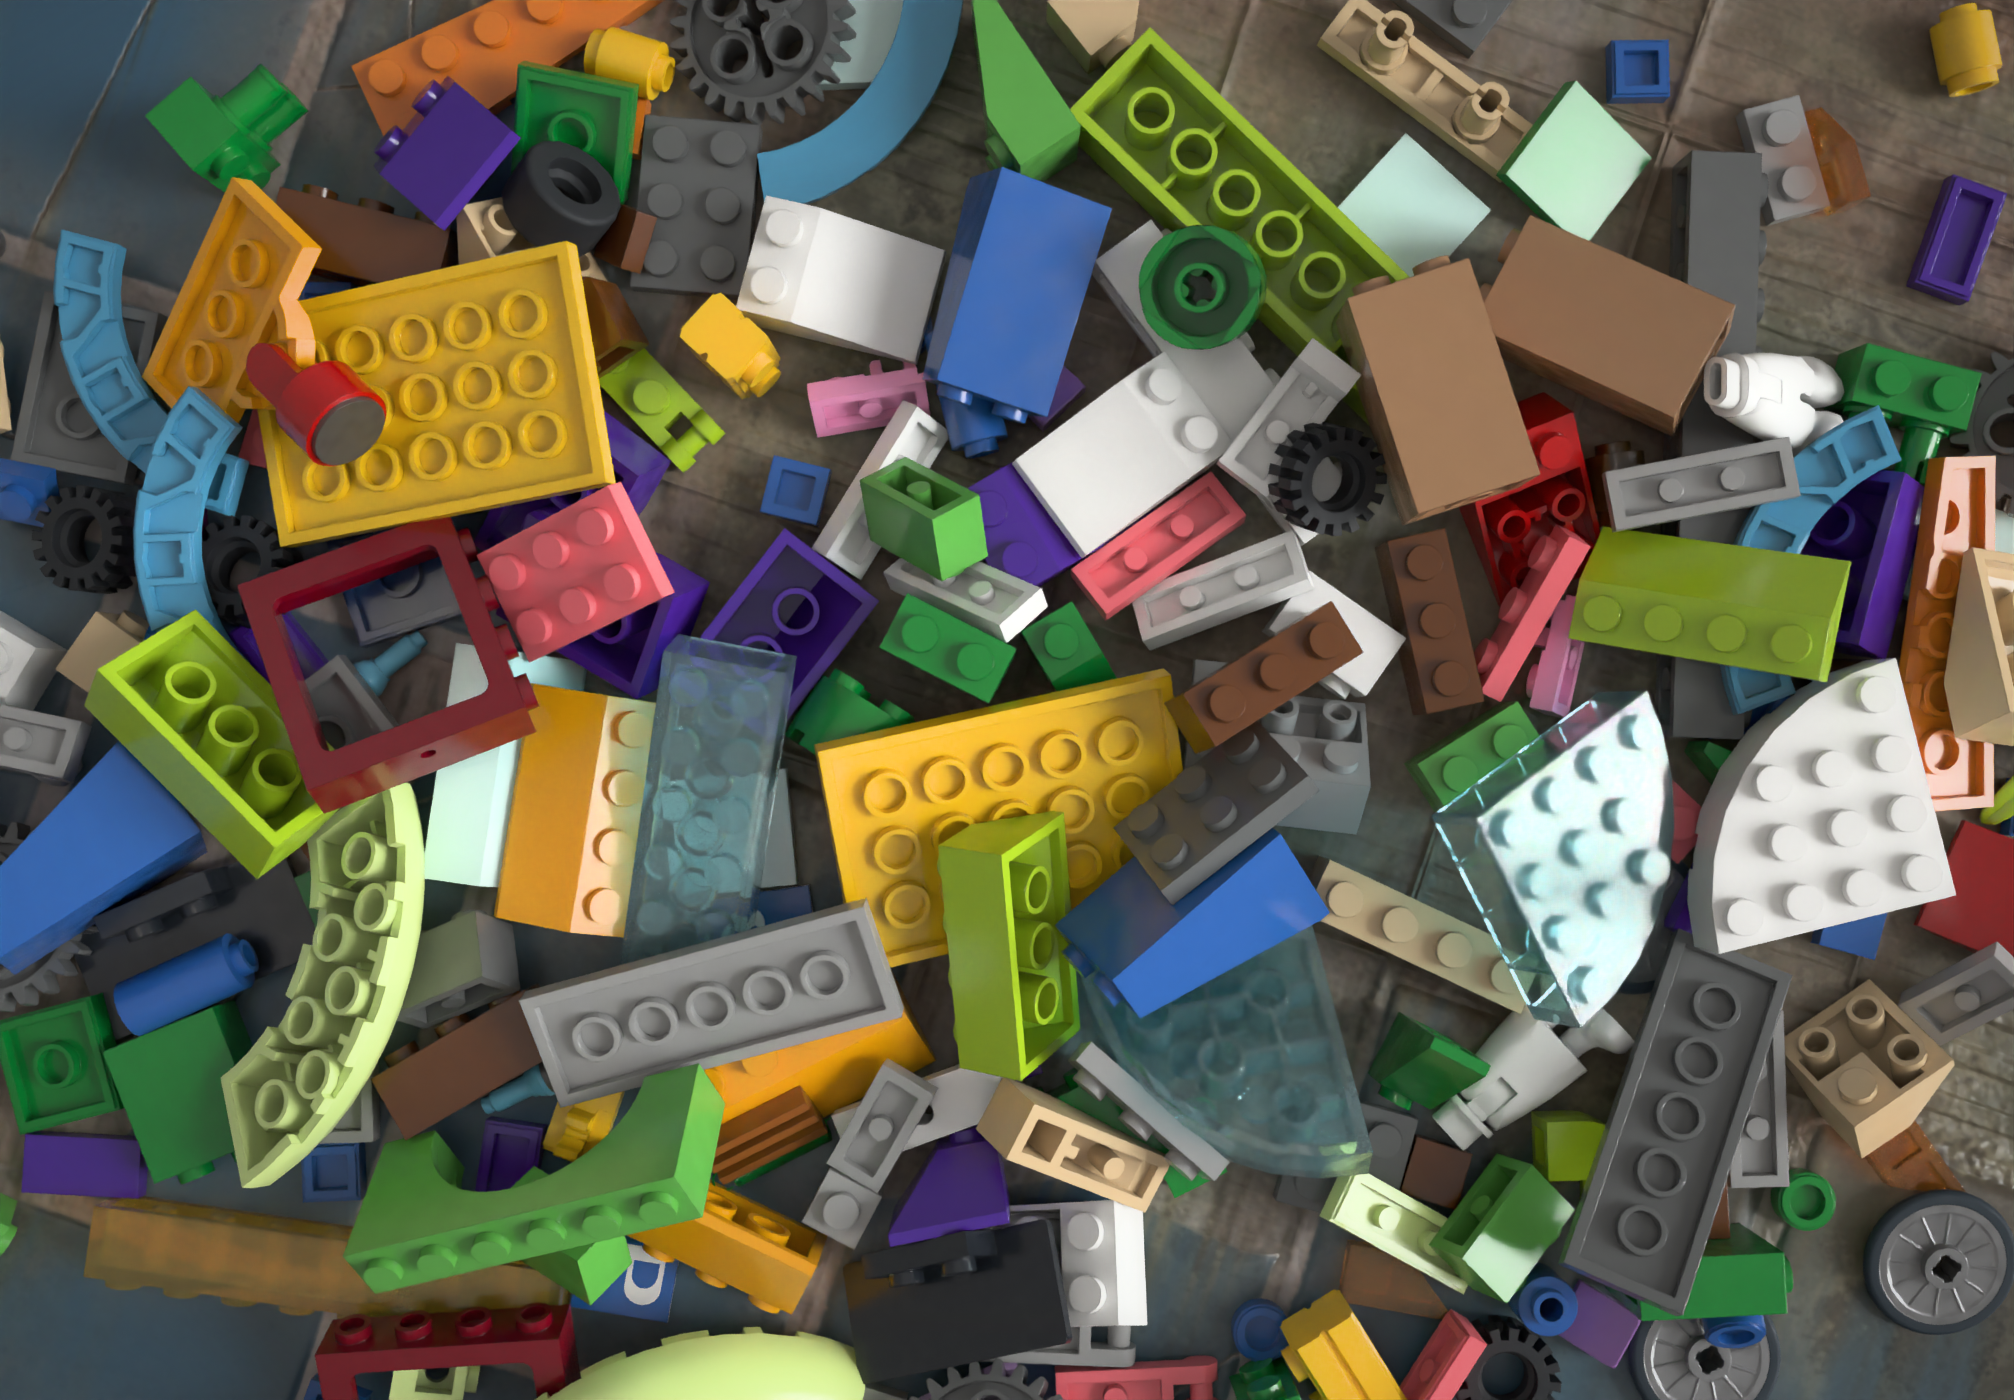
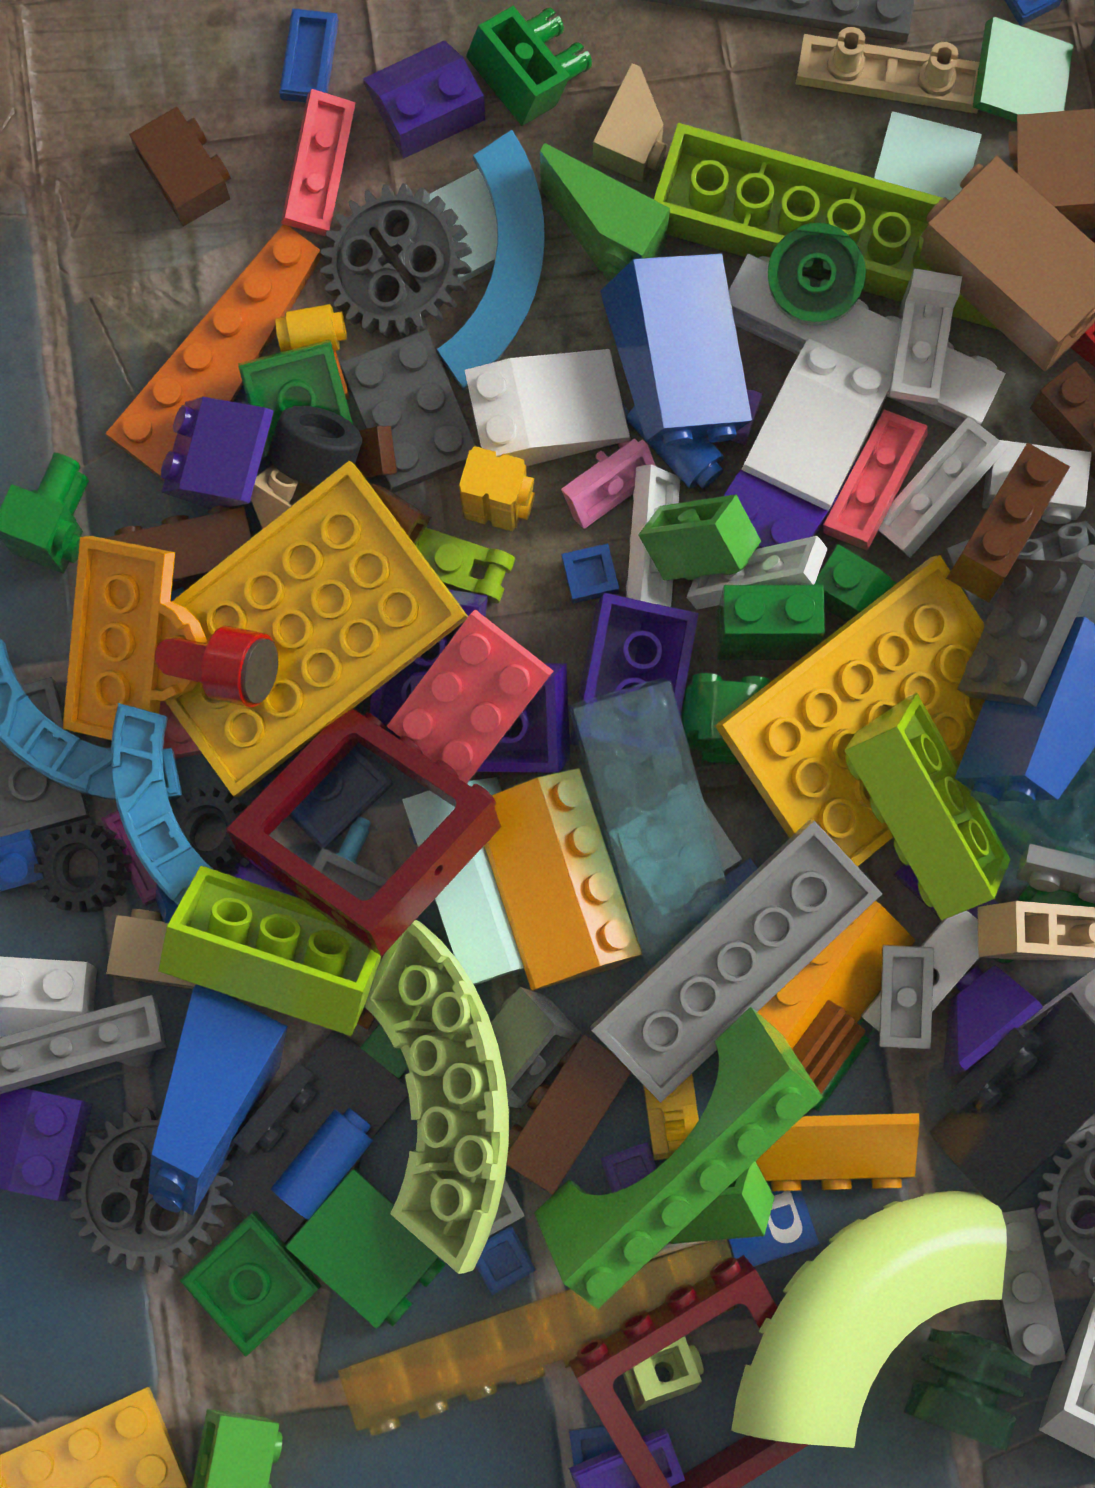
camera: 25 degrees left, 10 degrees down
(83, 1165) = (306, 1355): dark purple tile -> none
(532, 1083) = (626, 1106): medium azure piece -> none
(842, 1208) = (906, 1075): light grey brick -> none
(1356, 485) = (996, 356): black tyre -> none

